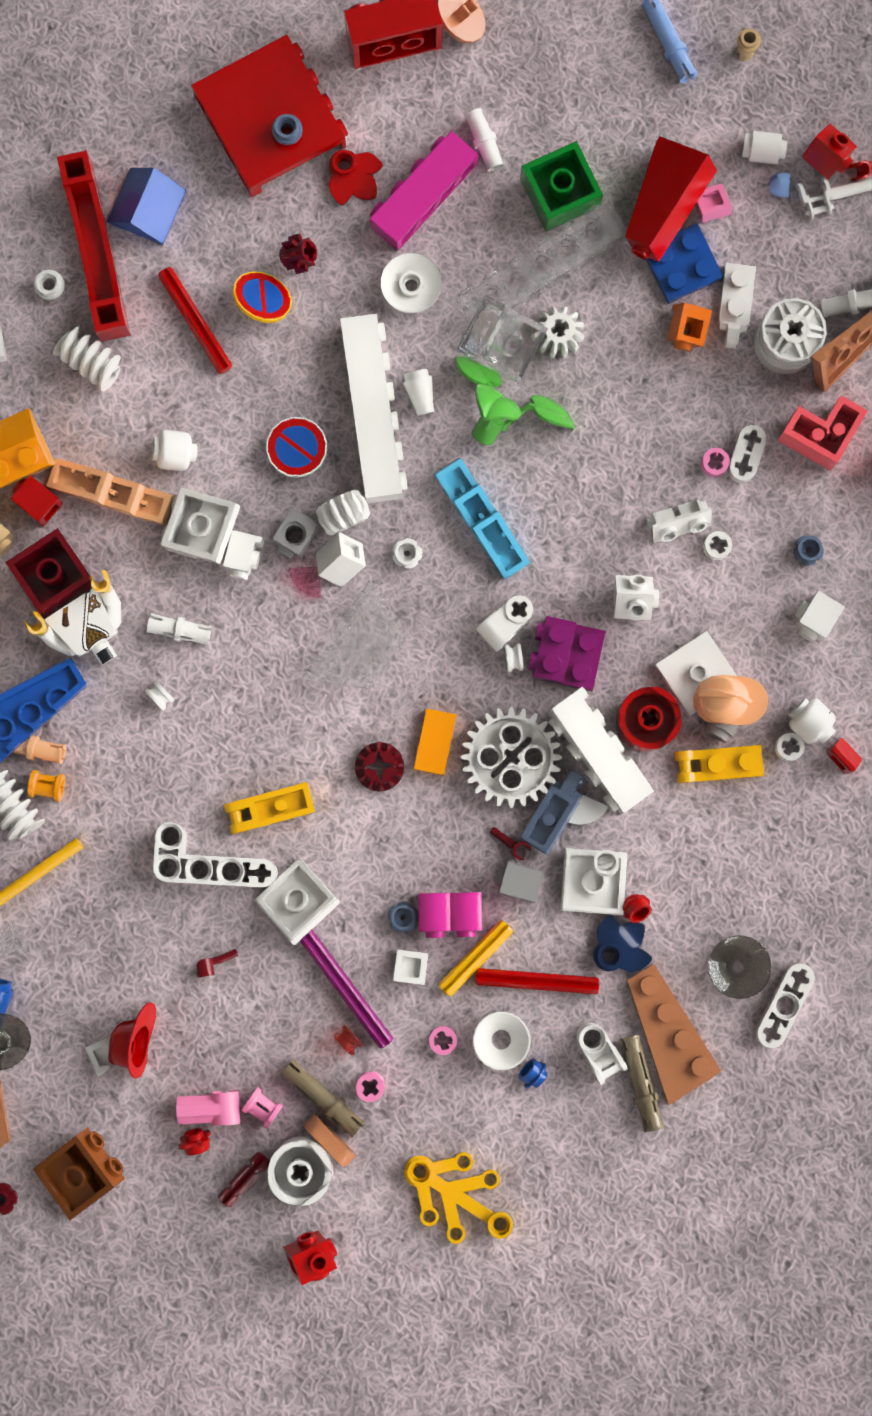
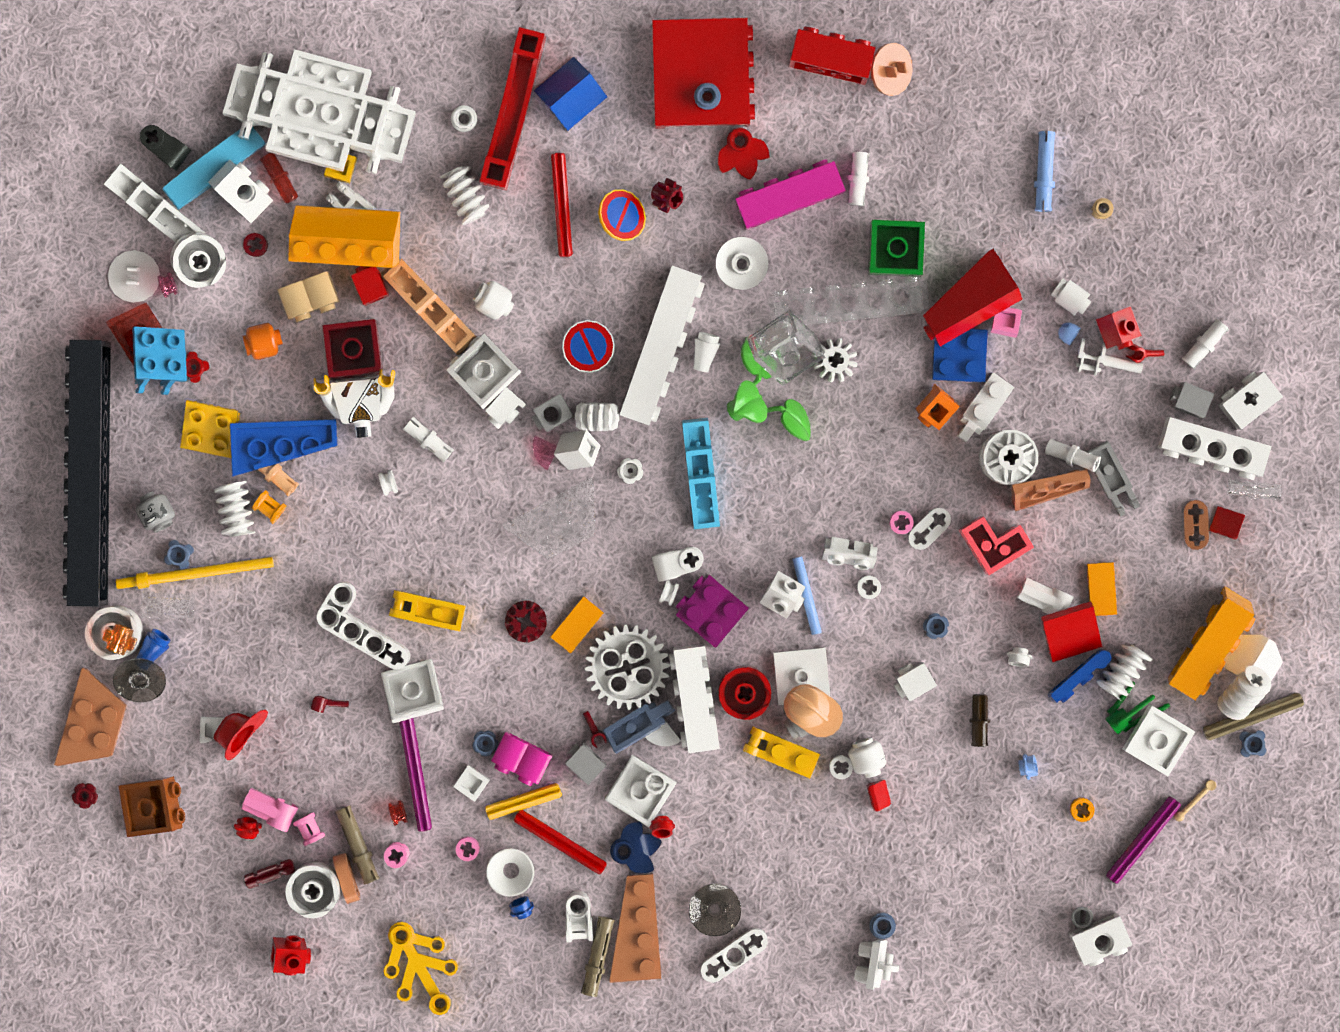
camera: 30 degrees right, 5 degrees up
(664, 594) = (808, 602): none -> light blue bar

